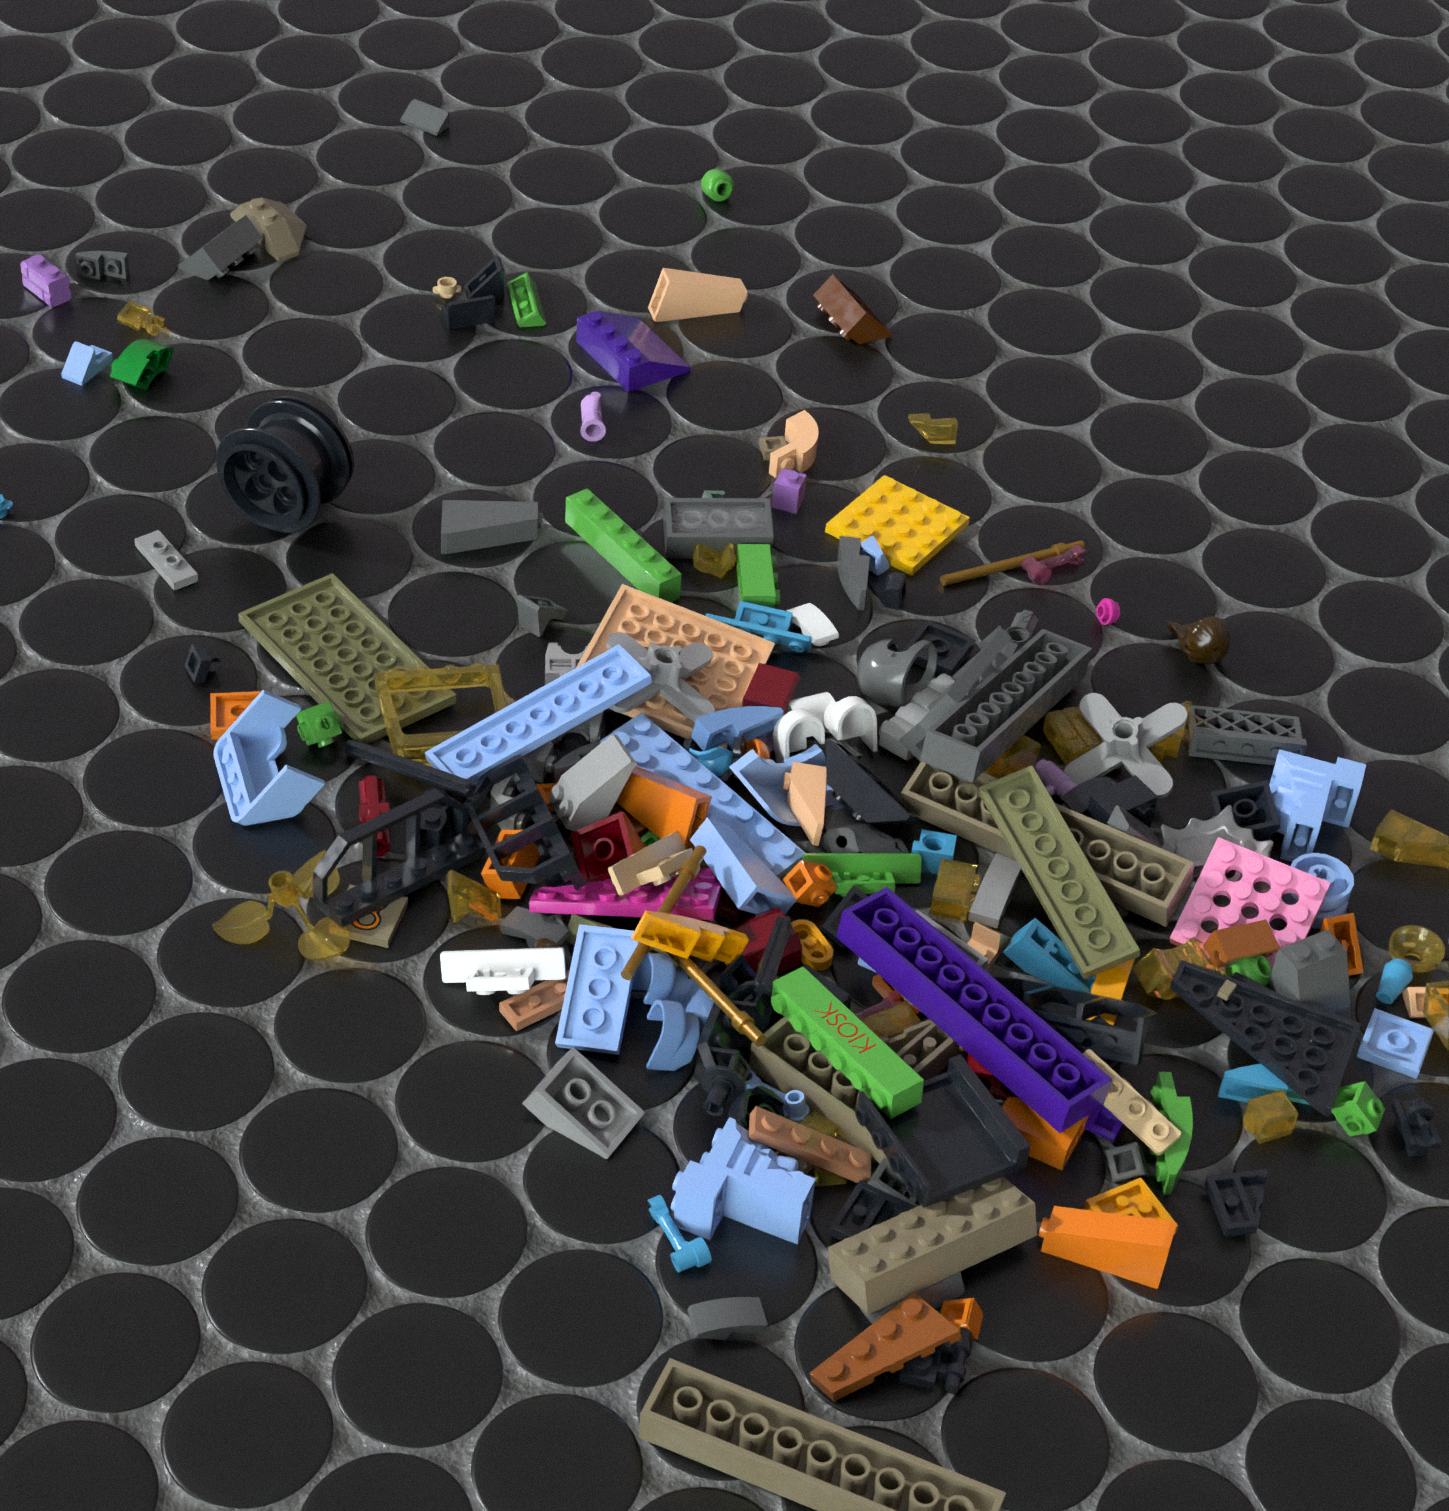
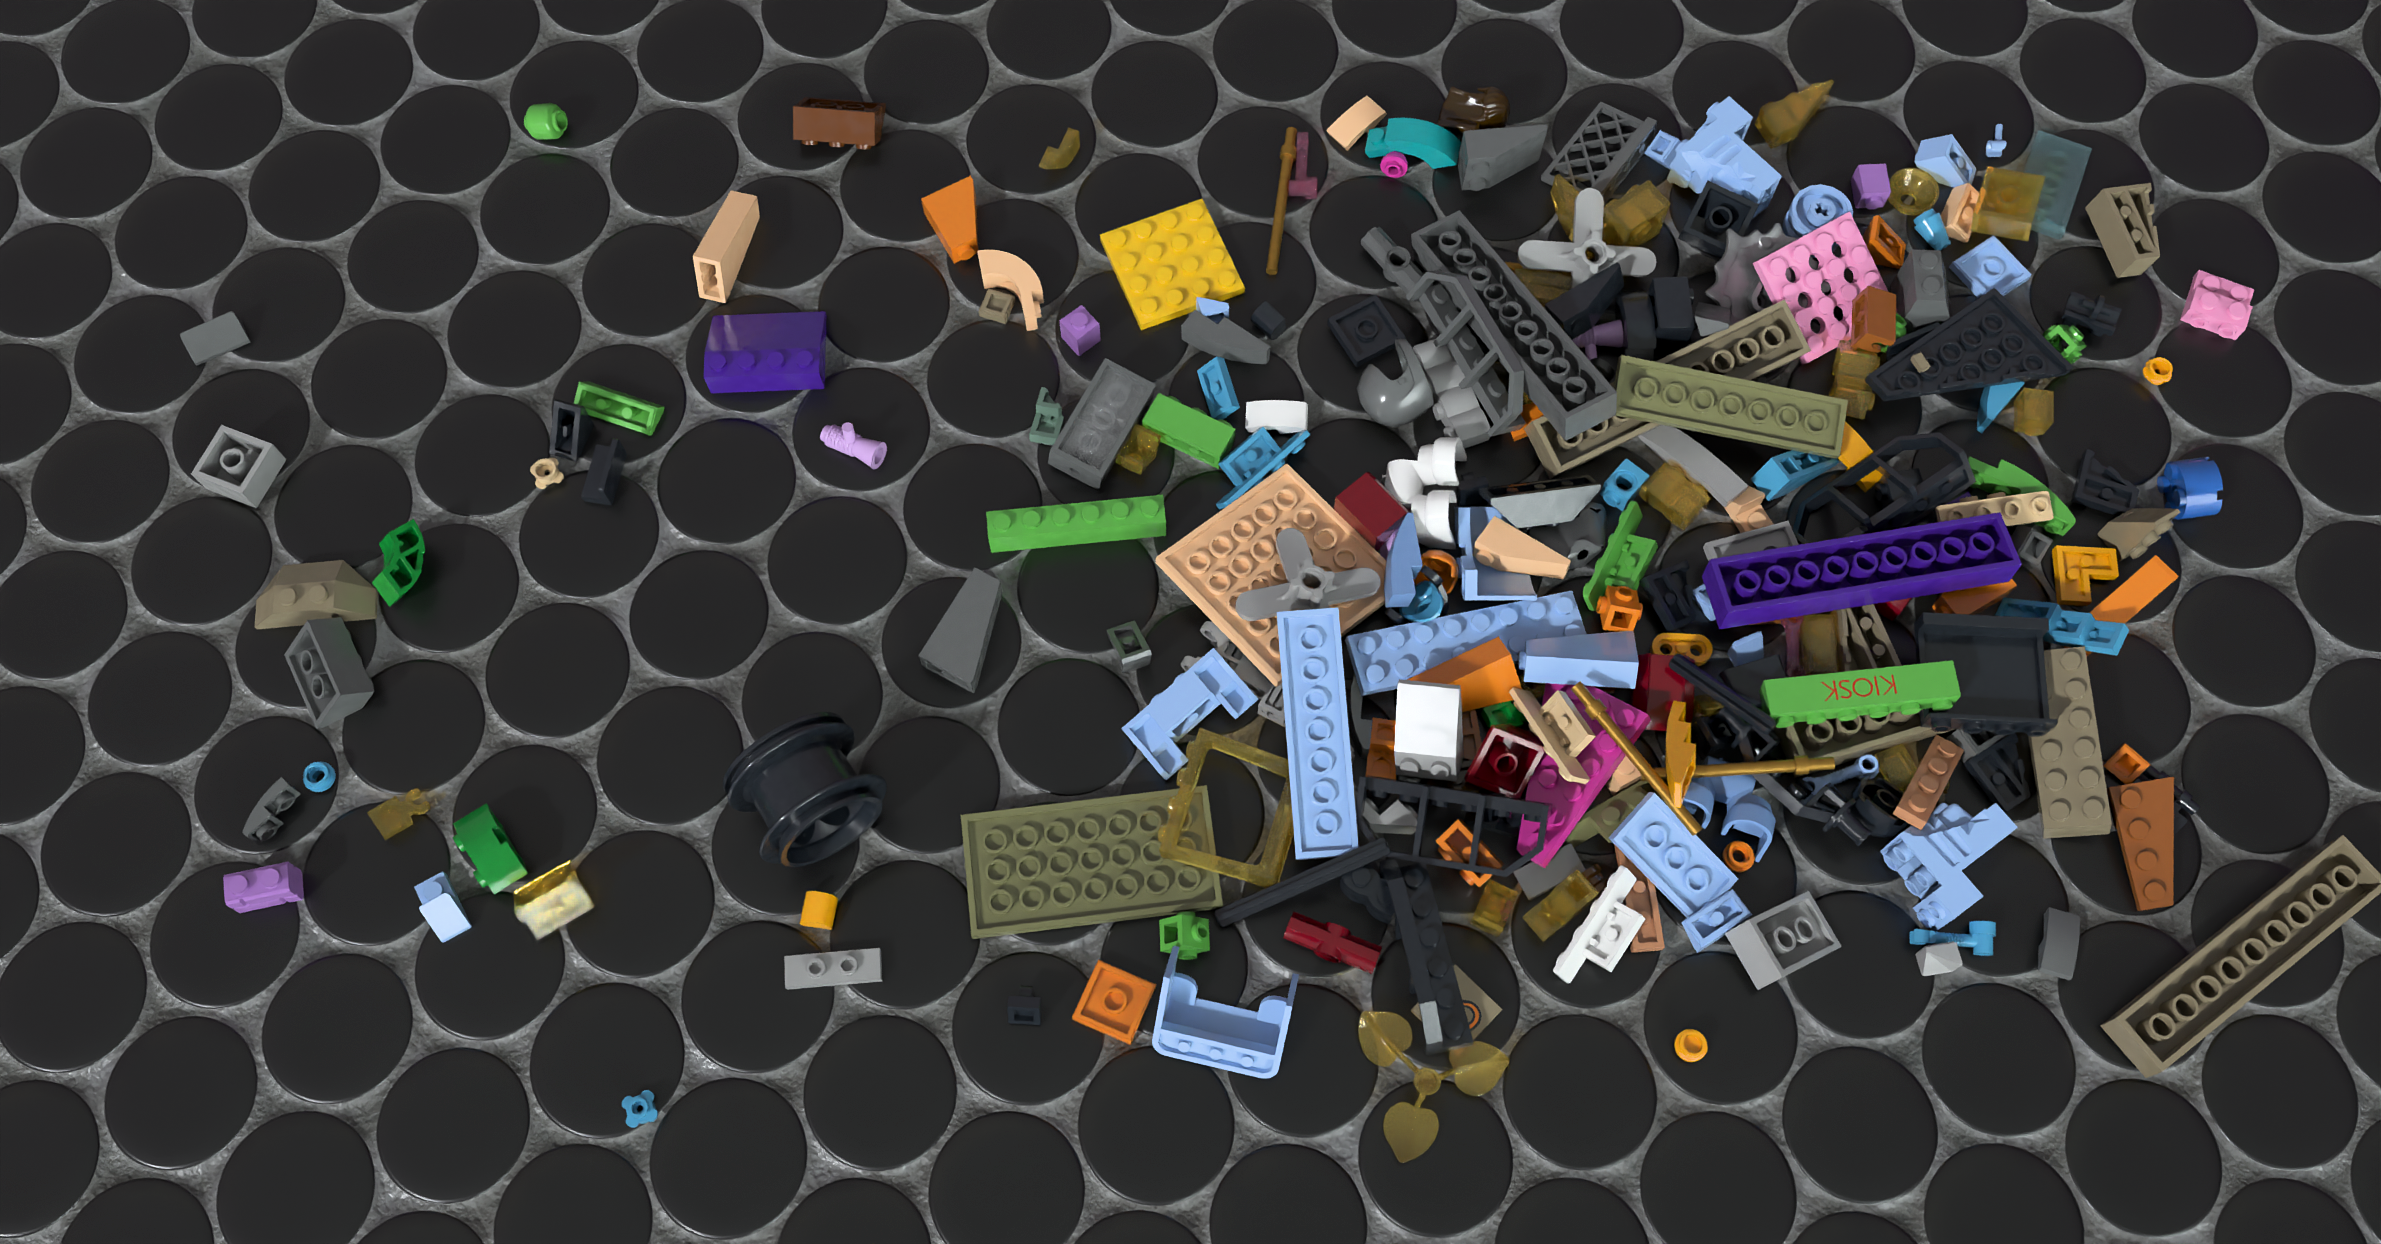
camera: 55 degrees left, 25 degrees up
(122, 403) = (551, 900): none -> clear yellow bracket
(142, 276) = (313, 771): none -> dark azure plate
(206, 535) = (819, 910): none -> light orange brick
(324, 246) = (403, 561): none -> green brick
(338, 156) = (238, 466): none -> light grey brick
(439, 1077) = (1690, 1045): none -> light orange plate
(491, 935) = (1561, 905): none -> clear yellow brick
(529, 654) = (1183, 707): none -> light blue bracket
(555, 1043) = (1715, 920): none -> light blue slope
(640, 1050) = (1746, 852): none -> orange plate
(645, 1226) = (1938, 958): none -> light grey slope
(813, 580) = (1218, 388): none -> dark azure plate
(828, 396) = (954, 218): none -> orange slope
(849, 983) = (1747, 649): none -> light blue slope
(1049, 1192) = (2069, 627): none -> dark azure slope
(1081, 755) = (1585, 303): none -> black slope
(1133, 578) = (1356, 121): none -> light nougat slope
(1141, 612) = (1416, 138): none -> teal arch
(1173, 660) = (1497, 153): none -> dark grey slope
(1194, 761) = (1635, 216): none -> clear yellow brick
(1202, 1223) = (2137, 530): none -> dark tan slope
(1292, 1258) = (2191, 487): none -> blue brick
(1391, 916) = (1870, 186): none -> medium lavender brick
(1408, 1205) = (2160, 365): none -> light orange plate

